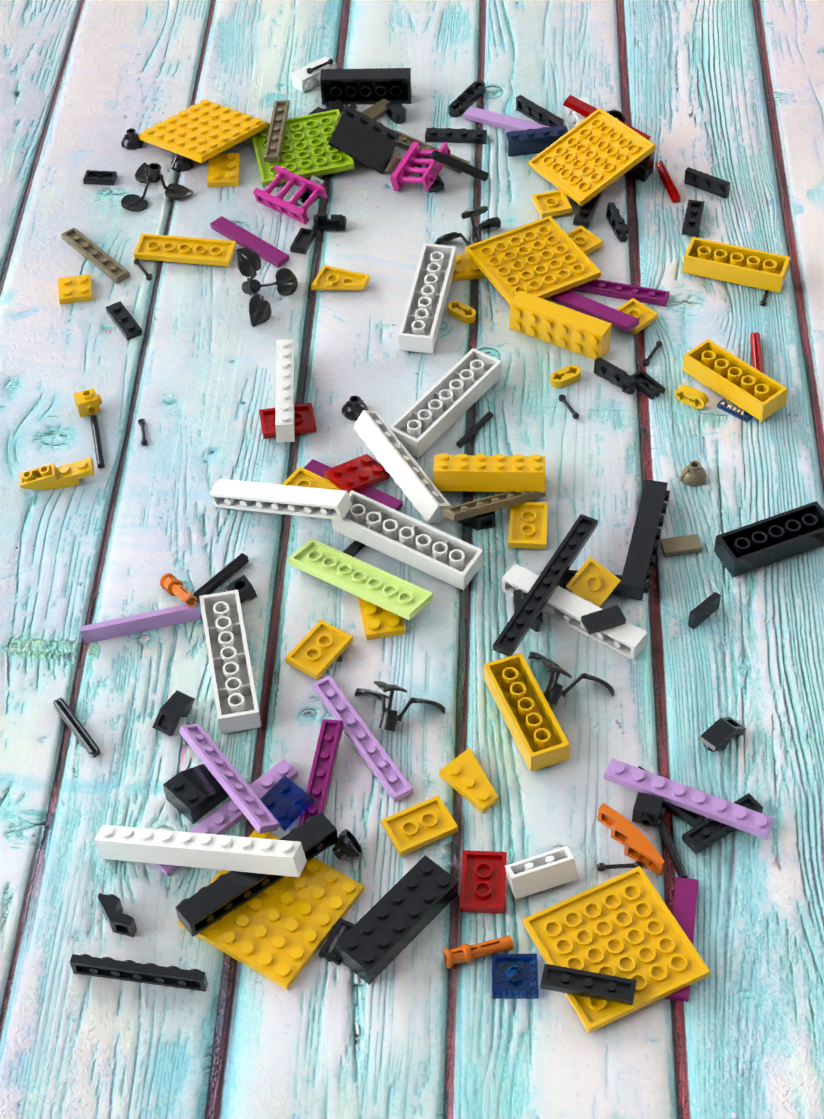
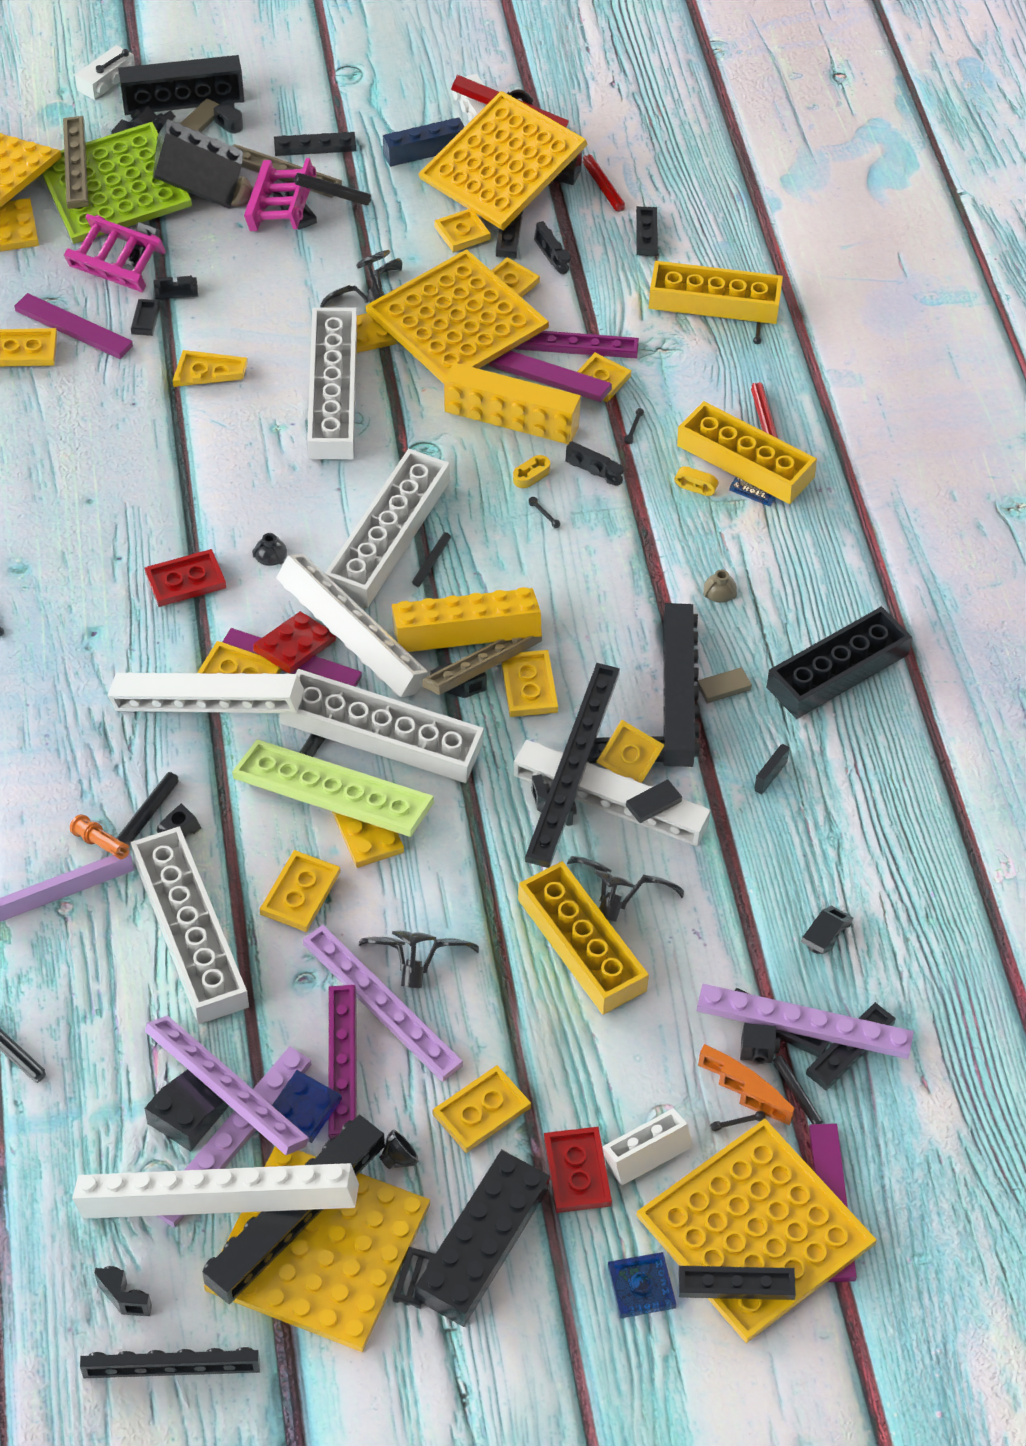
camera: 15 degrees left, 5 degrees up
(170, 713) = (130, 1005): black slope -> none
(248, 264) = (88, 364): black plant -> none
(285, 391) = (175, 538): white brick -> none
(461, 312) = (378, 396): yellow beam -> none
(467, 952) = (578, 1266): orange pin -> none
(469, 96) = (314, 88): black beam -> none
(470, 781) = (531, 1039): yellow wing -> none
(499, 120) = (371, 116): lavender tile -> none
(537, 112) = (417, 102): black plate -> none
(644, 385) = (633, 471): black tile -> none
(707, 182) = (654, 179): black plate -> none

